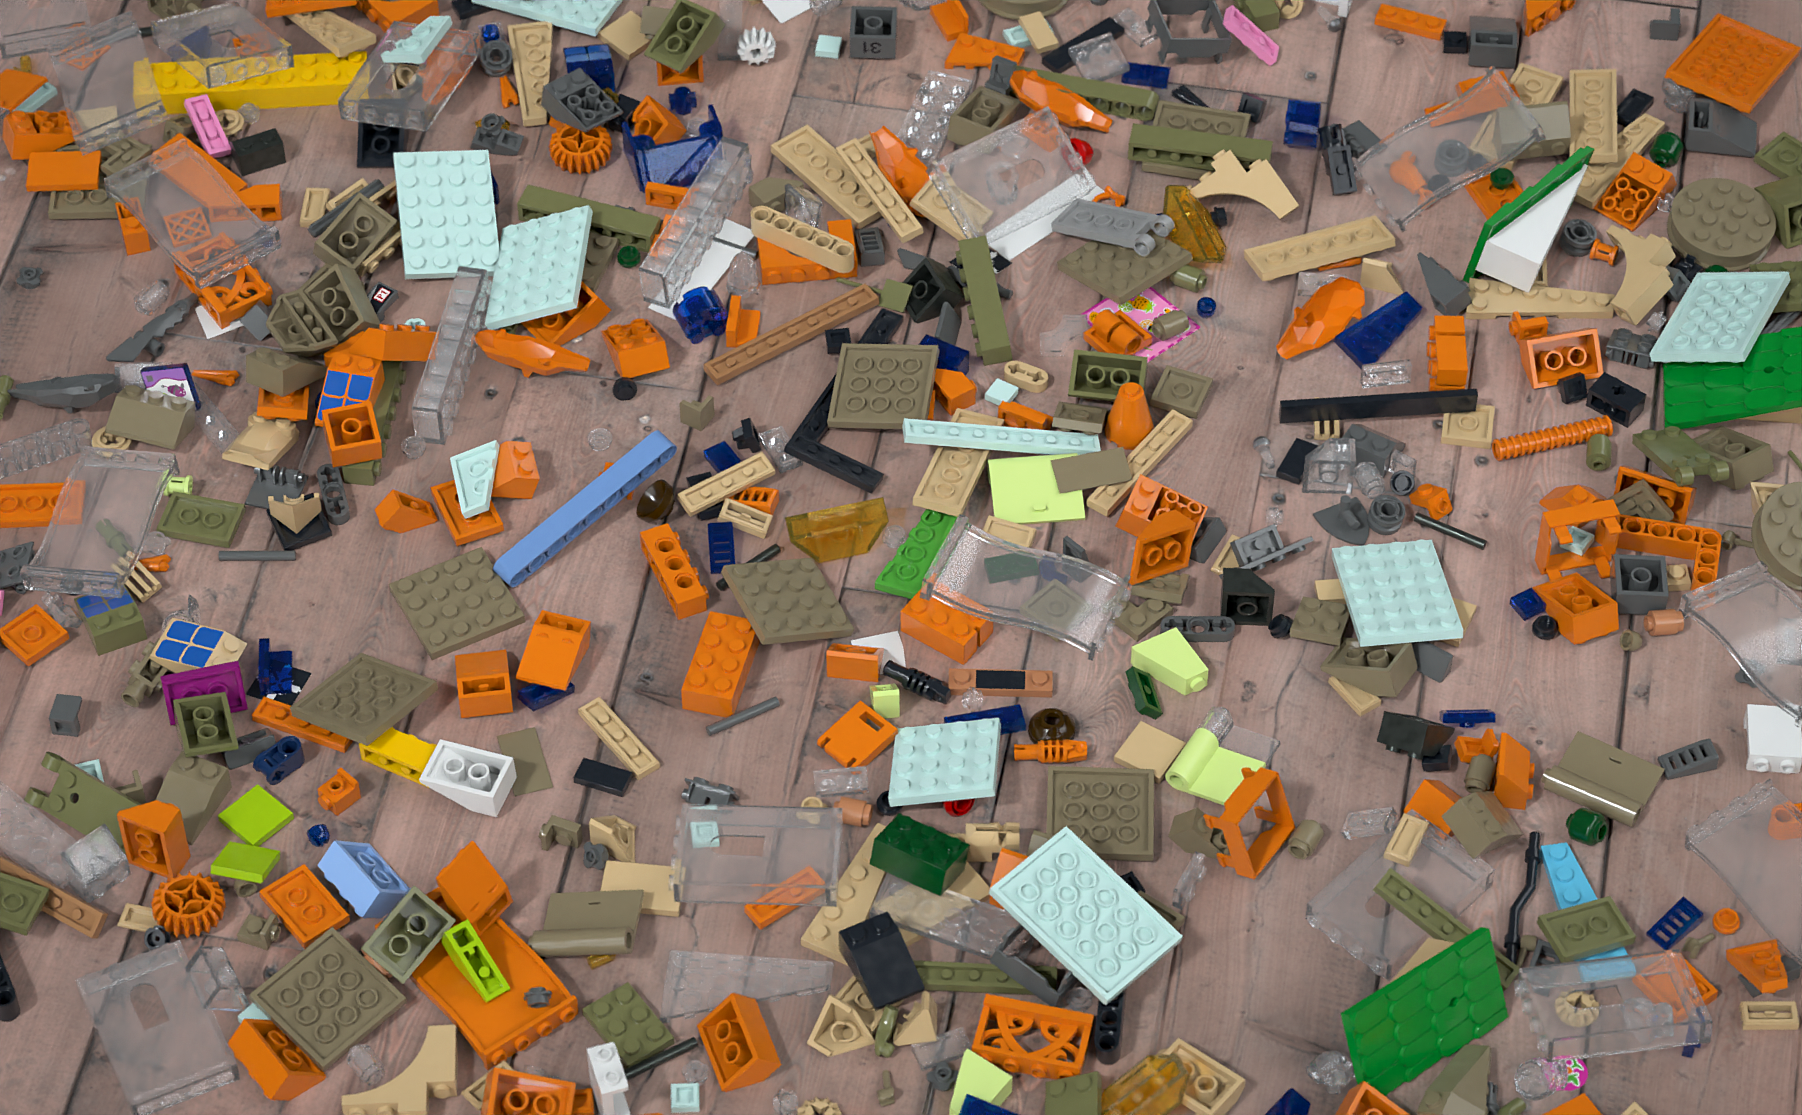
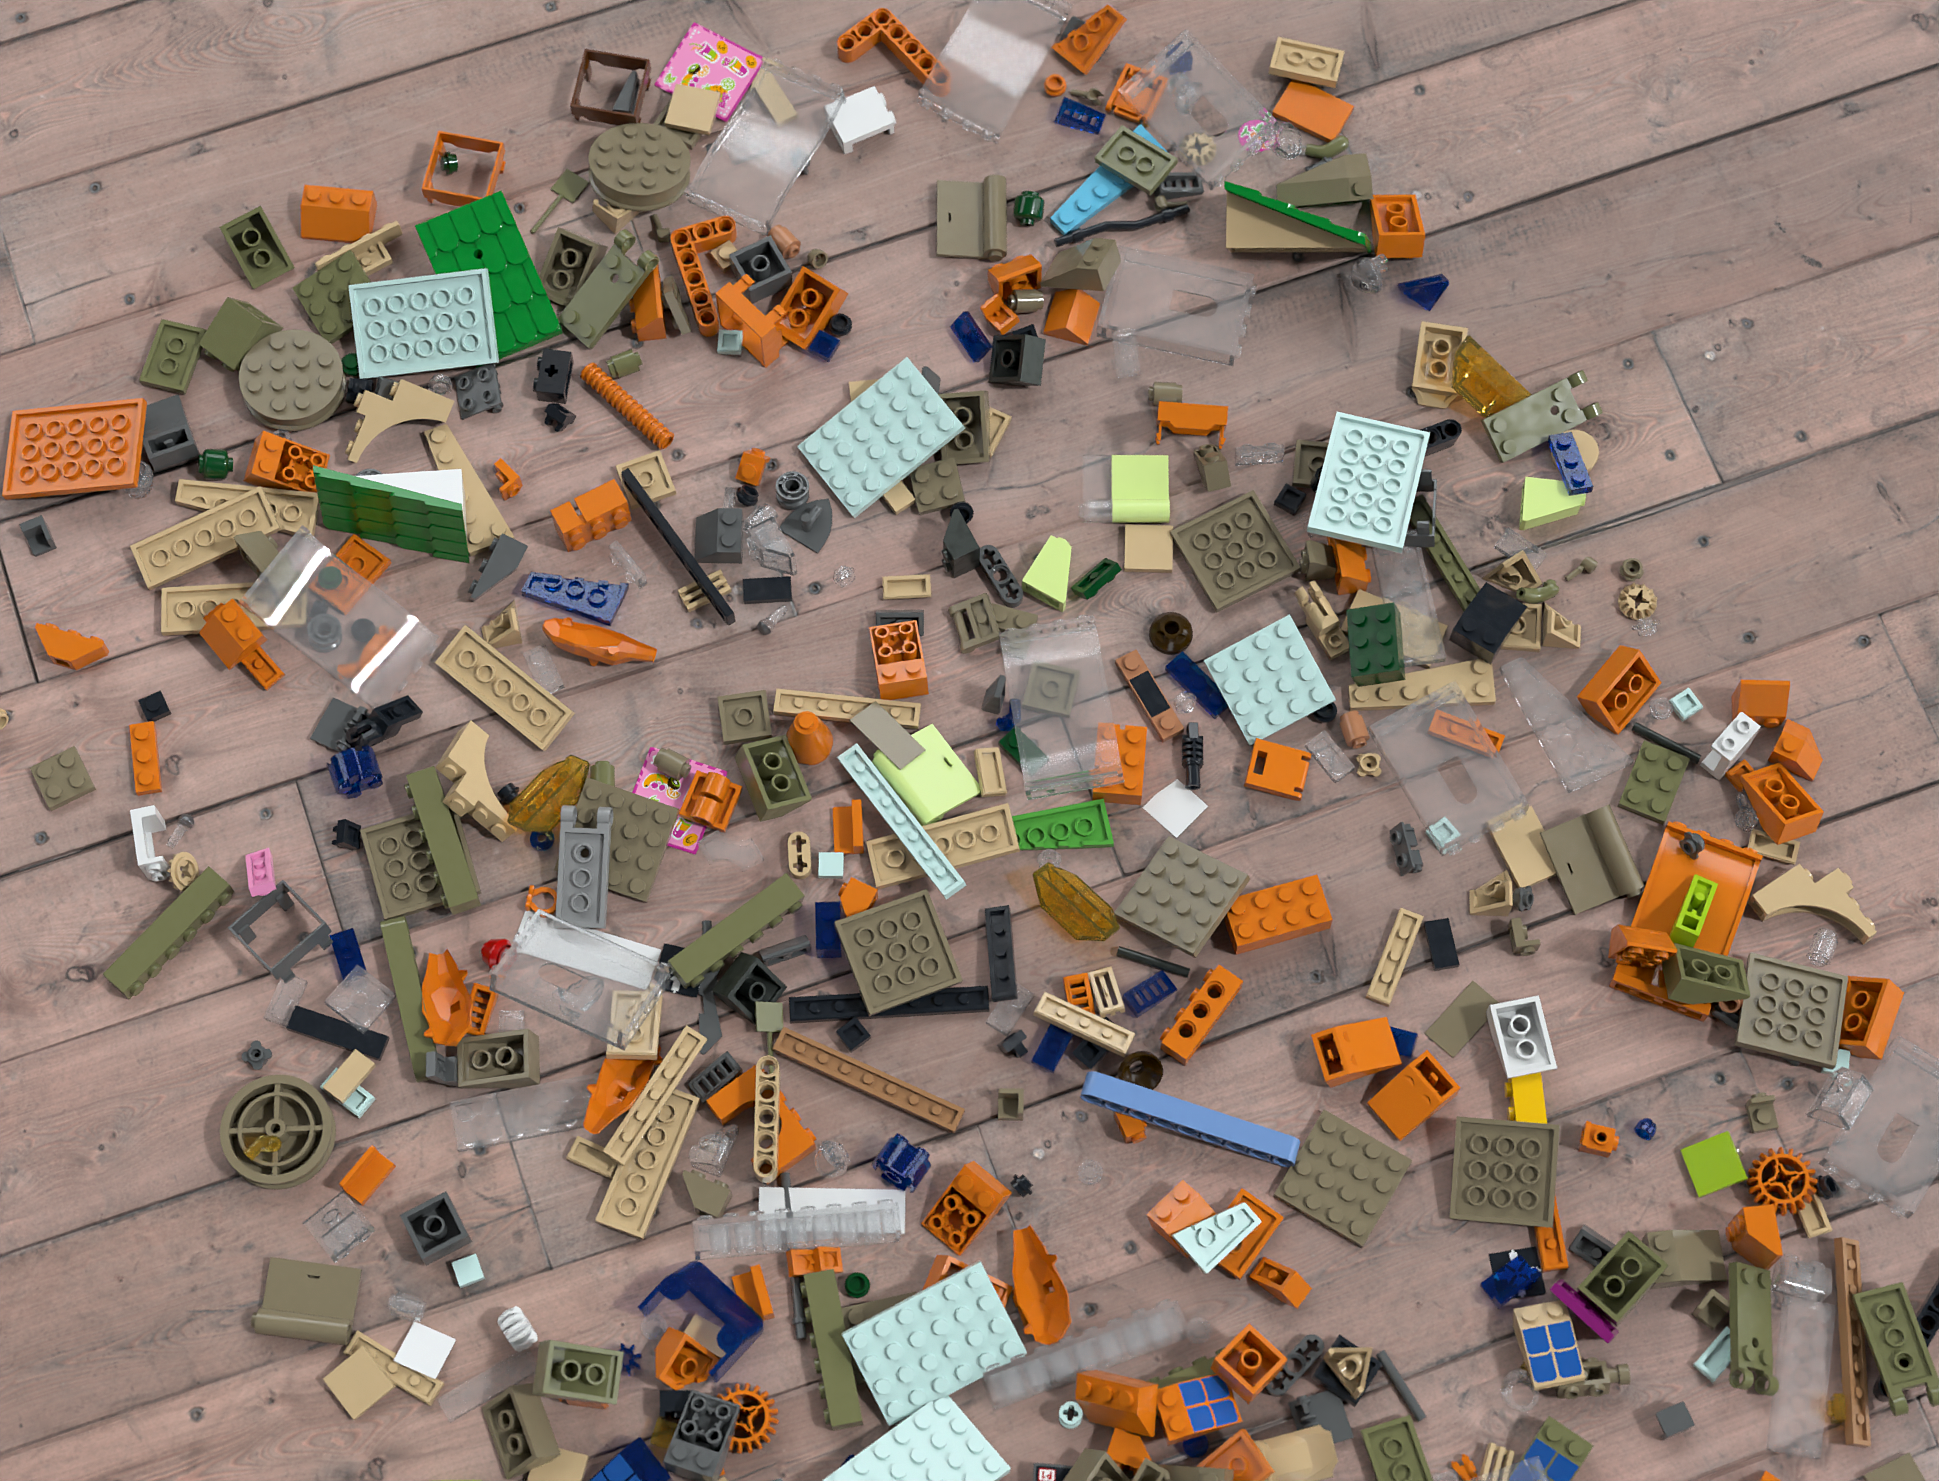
camera: 120 degrees left, 20 degrees up
(255, 816) = (1660, 1194): lime tile -> none
(280, 759) = (1604, 1209): dark blue piece -> none
(304, 905) = (1718, 1092): orange plate -> none
(362, 878) = (1663, 1060): light blue slope -> none
(741, 324) = (875, 1132): orange panel -> none
(742, 716) = (1307, 871): dark grey bar -> none
(854, 662) = (1200, 815): orange slope -> none
(885, 700) = (1225, 770): yellowish green slope -> none
(942, 1083) = (1543, 540): dark grey plate -> none
(977, 51) = (399, 1120): orange wing -> none
(1044, 1061) = (1466, 518): orange fence -> none
(1052, 751) = (1197, 617): orange hinge -> none
(1079, 417) = (830, 778): dark tan plate -> none
(1162, 546) = (950, 629): orange slope -> none
(1187, 96) = (358, 901): black piece -> none
(1204, 305) = (635, 745): clear blue hinge -> none
(1263, 545) = (897, 559): bracket -> none
(1406, 840) = (1133, 313): tan tile -> none
(1433, 918) = (1200, 249): olive plate -> none
(1450, 530) = (775, 440): pearl dark grey bar -> none
(1492, 41) = (137, 670): dark grey slope -> none
(1561, 355) = (526, 439): orange slope -> none
(1571, 496) = (689, 358): orange slope -> none
(1595, 252) = (376, 458): orange bush -> none
(1633, 107) = (160, 518): black tile -> none
(1698, 749) = (912, 158): dark grey slope -> none
(1769, 1019) = (1129, 41): tan tile -> none

